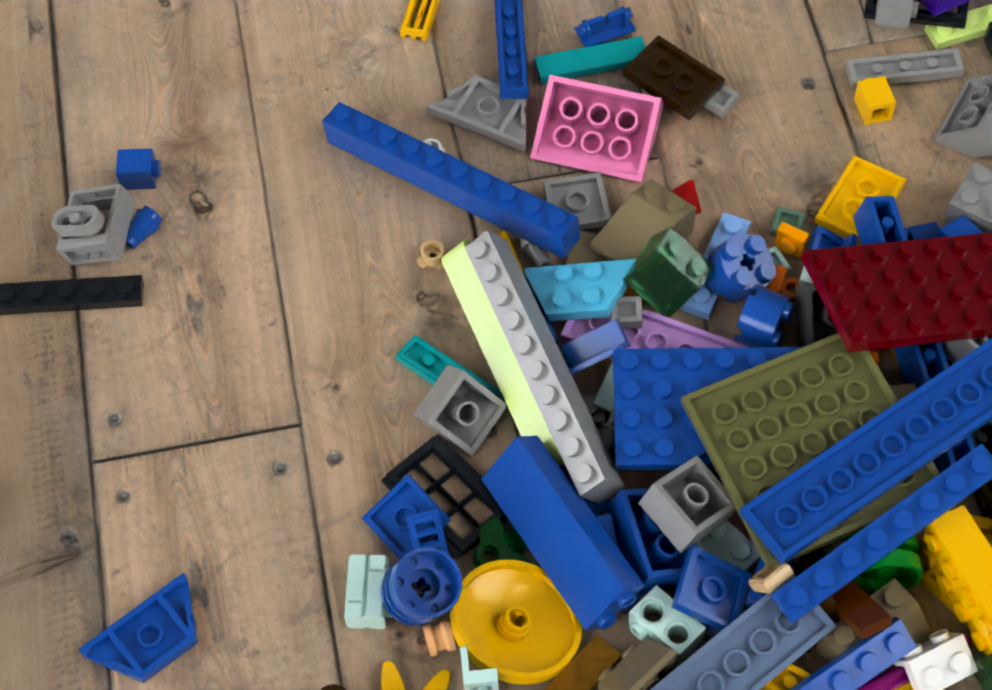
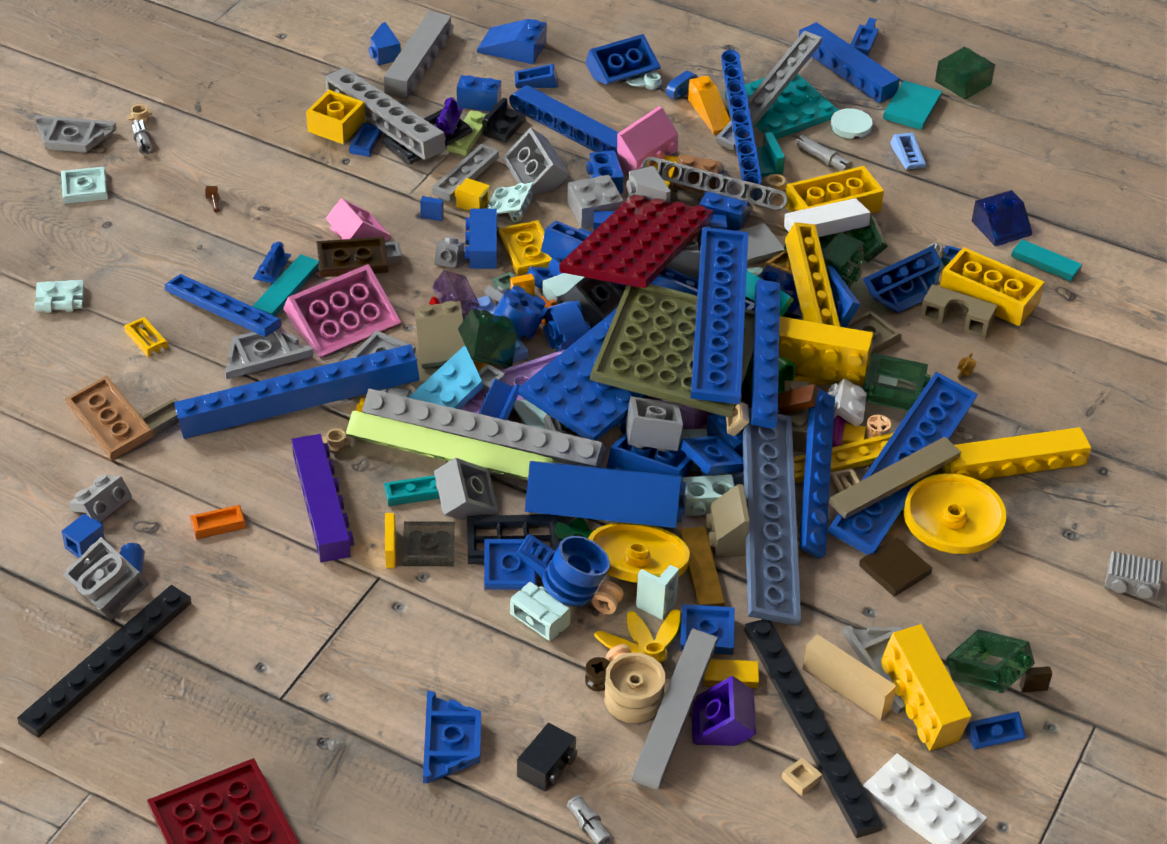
camera: 55 degrees left, 15 degrees down
(194, 144) = (102, 497): none -> light grey bracket
(250, 248) = (218, 522): none -> orange tile
(294, 72) = (109, 417): none -> medium nougat tile
(321, 104) = (162, 417): none -> dark tan tile
(343, 396) = (390, 540): none -> yellow tile
(345, 301) = (321, 498): none -> dark purple brick
(370, 431) = (428, 543): none -> clear smoke plate
(718, 191) = (455, 288): none -> clear purple brick
(728, 46) = (354, 222): none -> bright pink slope
(756, 226) = (494, 293): none -> light grey plate
(776, 140) = (447, 251): none -> light grey bracket
(818, 83) = (432, 208): none -> blue tile
(823, 155) = (481, 239): none -> blue brick
(905, 136) = (512, 200): none -> light aqua hinge

